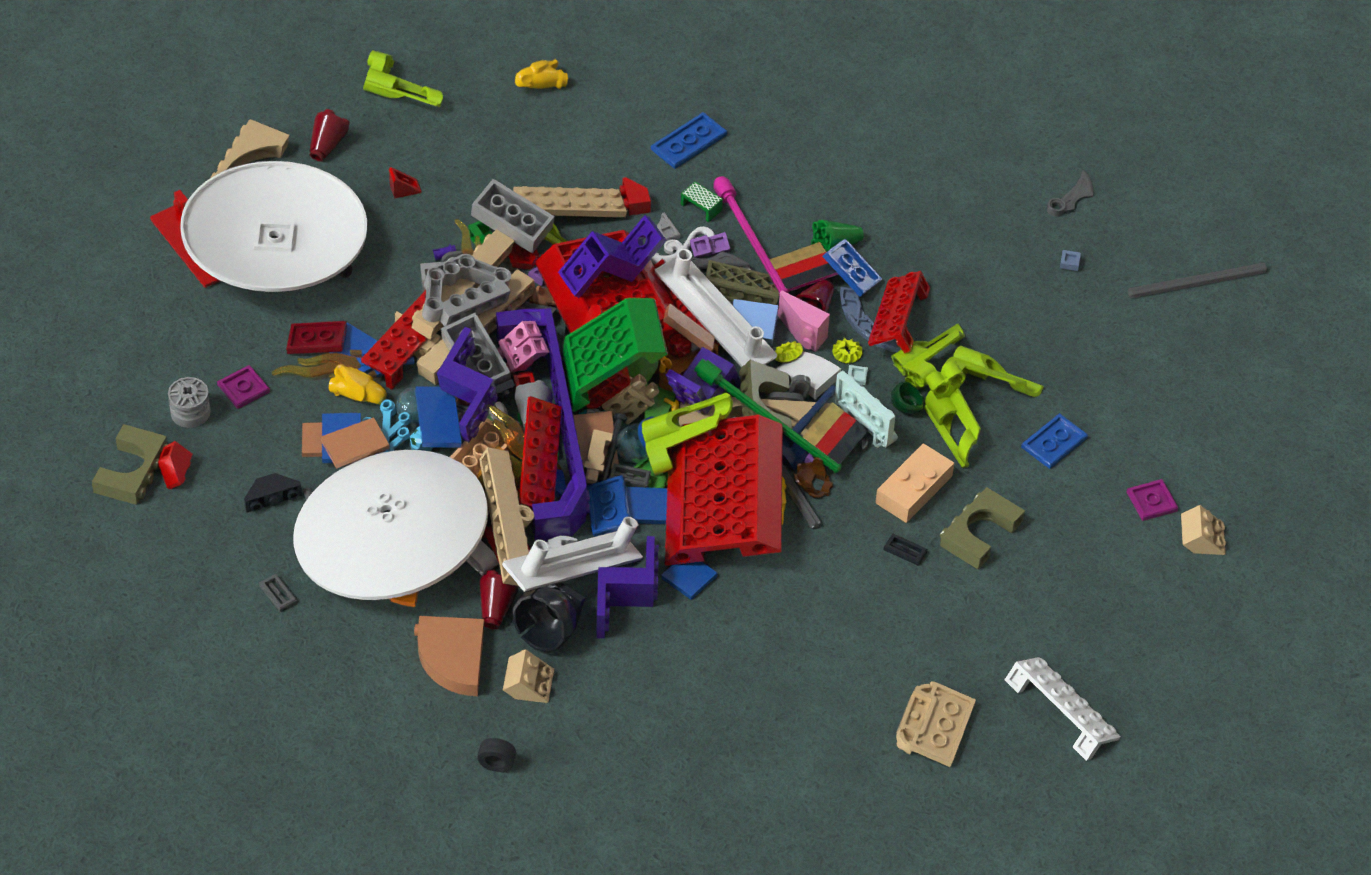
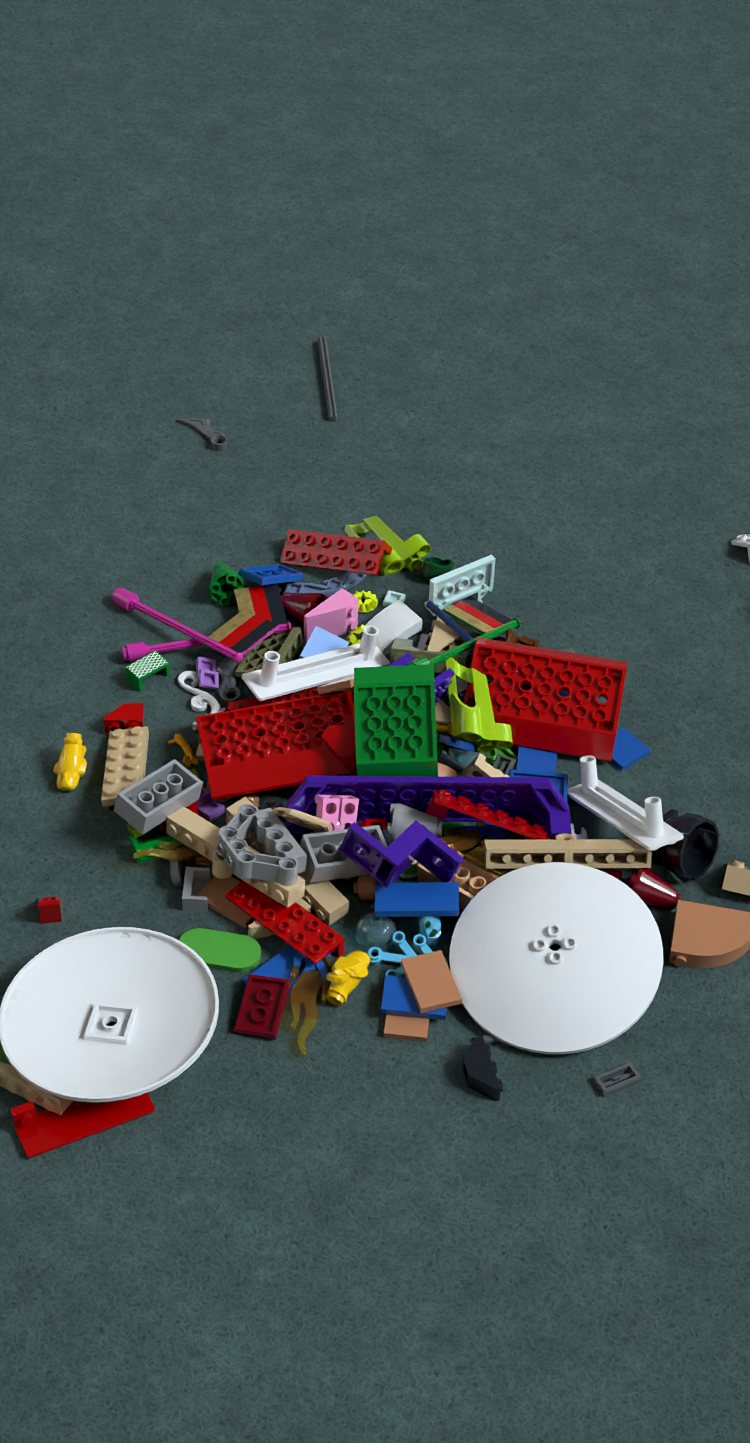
camera: 80 degrees left, 5 degrees down
(131, 486) = (402, 1179): olive arch -> none
(174, 464) = (433, 1156): red slope -> none
(189, 402) = (343, 1131): light grey wheel -> none
(243, 386) = (317, 1086): magenta tile -> none
(378, 303) = (223, 949): none -> bright green tile
(438, 253) = (160, 877): dark purple pin -> none
(495, 315) = (303, 819): none -> tan tile
(570, 167) = (71, 762): none -> yellow animal
(619, 258) = (258, 712): dark purple bracket -> none
(627, 586) = (643, 771): dark purple bracket -> none
(667, 228) = (172, 705): light grey tile -> none
(688, 140) = (54, 672): blue tile -> none
(753, 251) = (231, 639): none -> flag
(801, 385) = (417, 628): dark grey tile -> none
(903, 551) = (608, 601): black tile -> none
(914, 483) = (536, 579): light nougat brick -> none
(944, 402) = (449, 540): lime panel -> none
(983, 365) = (405, 519): lime panel -> none
(987, 507) = (598, 563): olive arch -> none
(1054, 441) = (493, 491): blue tile -> none
(1070, 260) = (287, 444): sand blue plate -> none
(1152, 500) = (567, 447): magenta tile -> none
(1202, 532) = (610, 423): tan slope -> none

